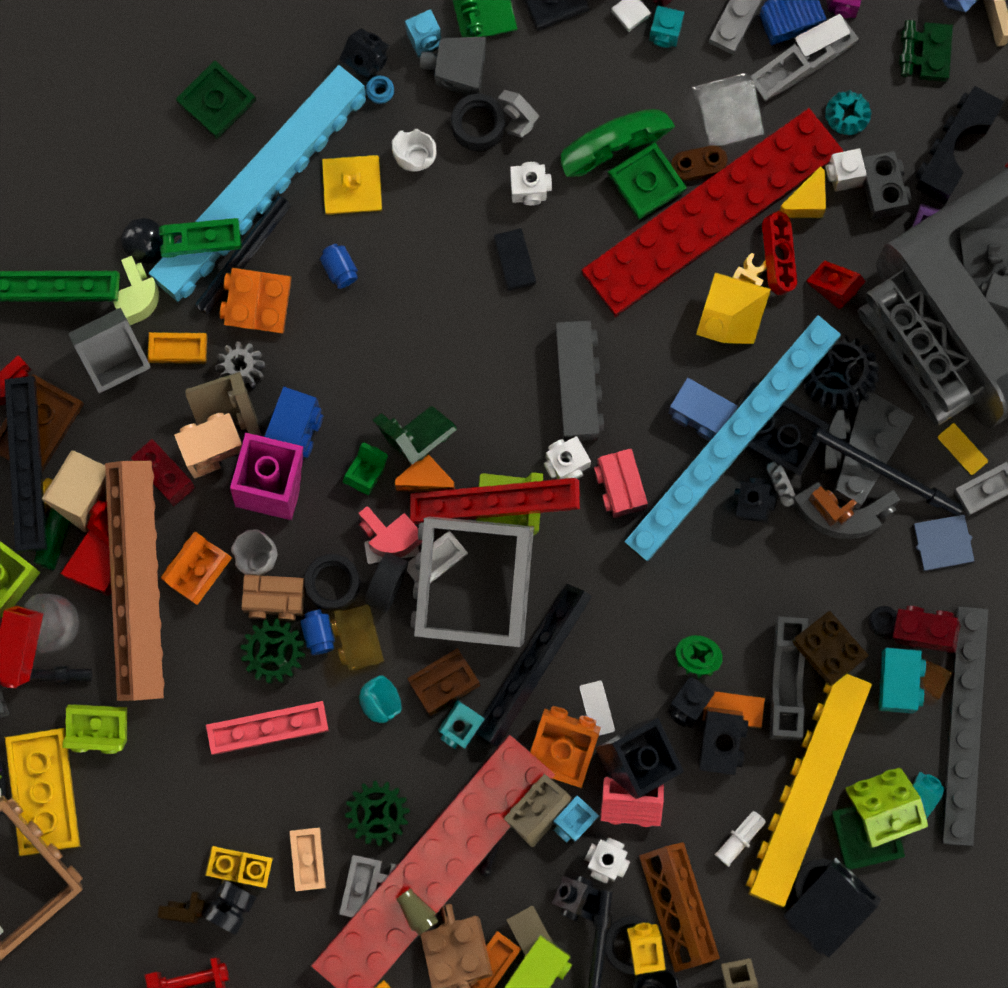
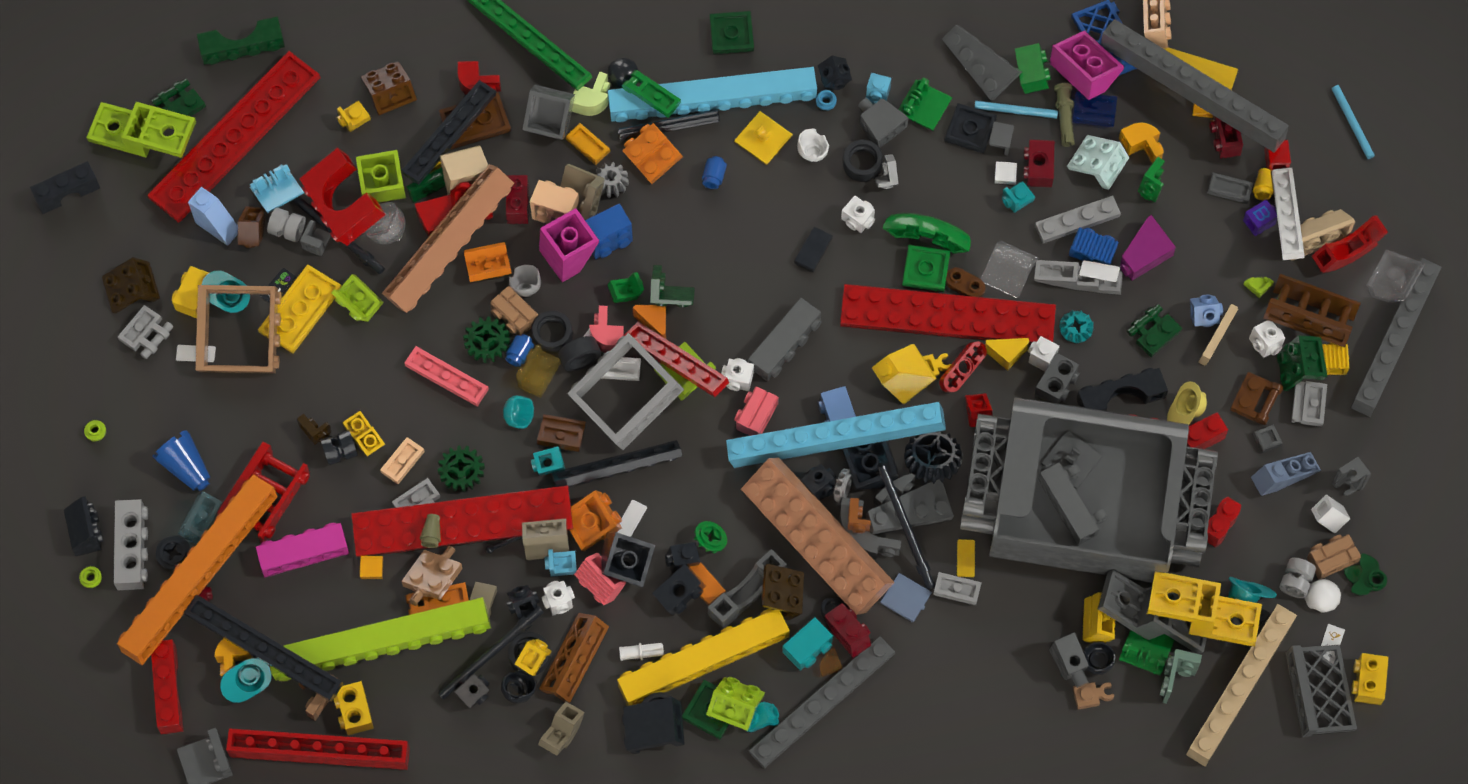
camera: 40 degrees right, 10 degrees down
(807, 559) = (817, 535): none -> nougat brick

